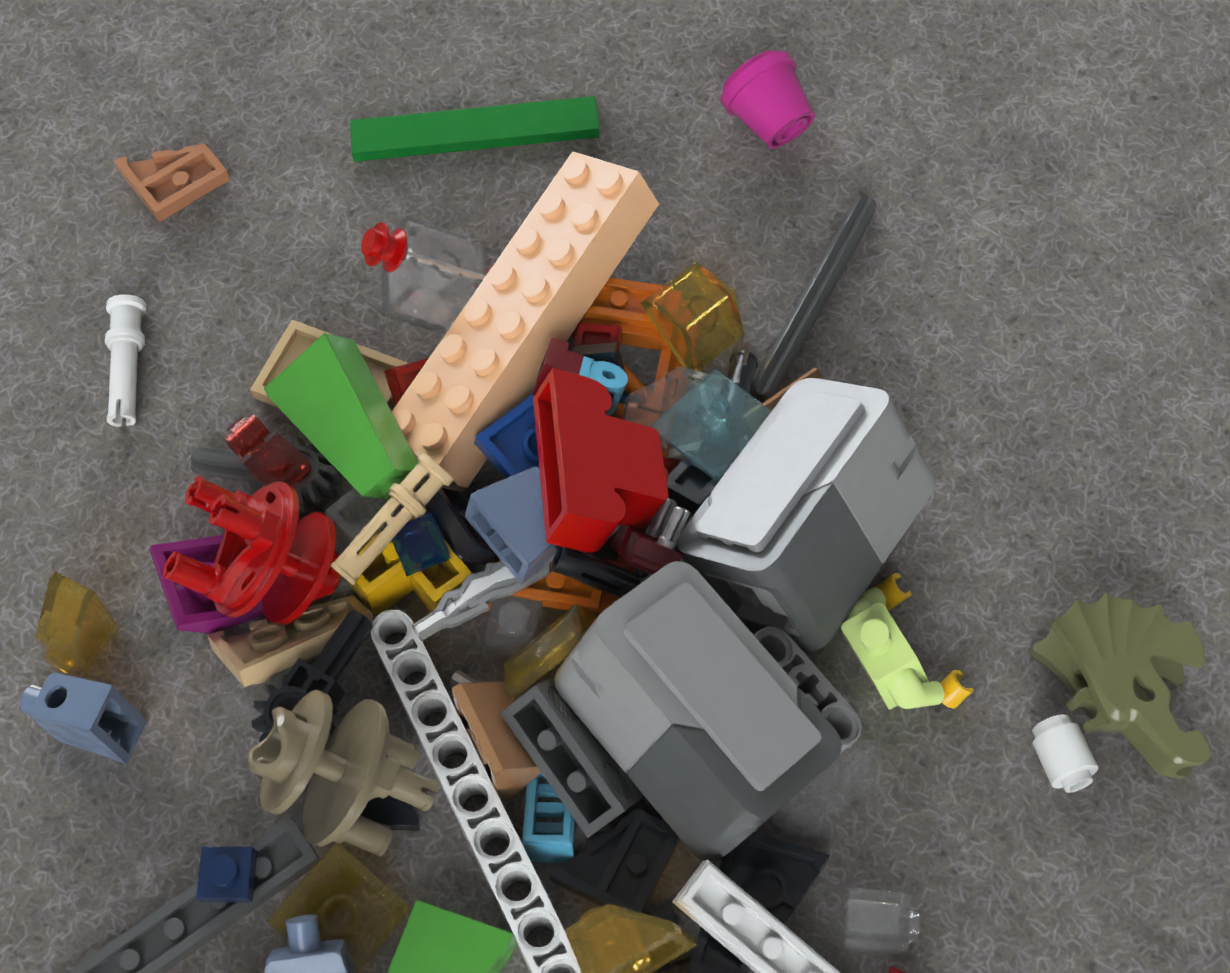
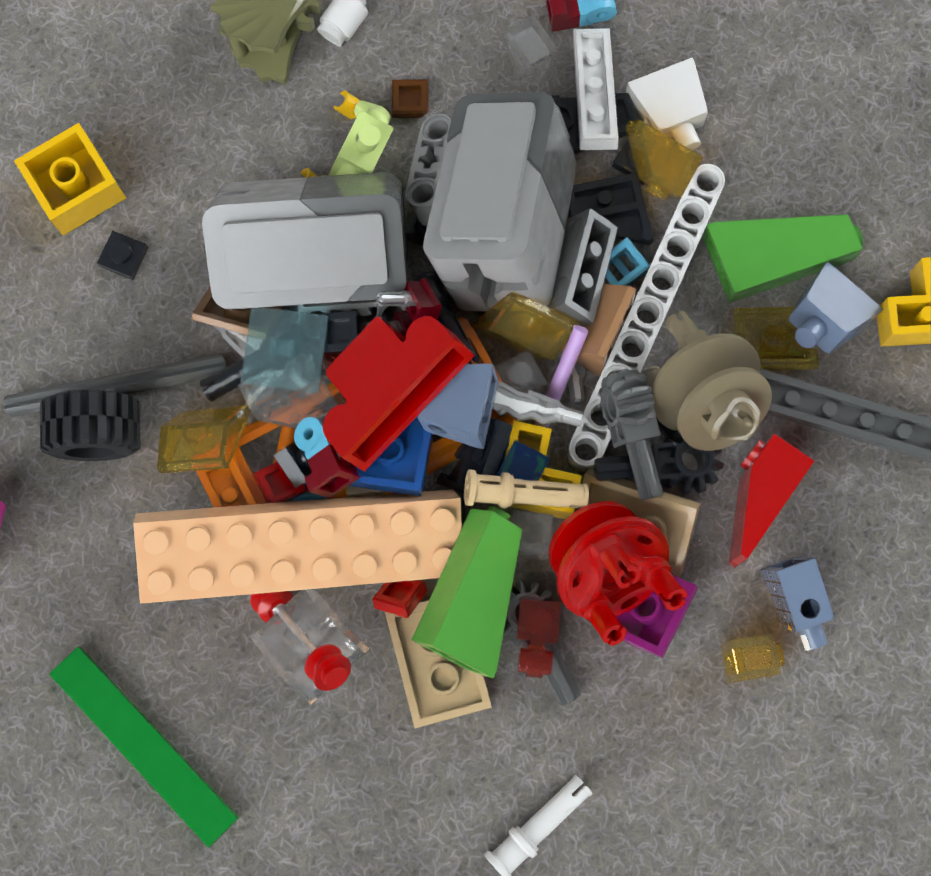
camera: 125 degrees left, 15 degrees up
(203, 775) = (764, 488): none -> red slope
(226, 874) = (815, 409): dark blue plate -> none
(365, 667) = (632, 421): none -> dark grey gear
(481, 660) = (566, 365): none -> lavender bar
(779, 232) = (90, 425): none -> black tyre
(915, 759) = (410, 98): none -> reddish brown tile
(945, 381) = (122, 255): none -> black plate
(1058, 373) = (70, 179): none -> yellow brick

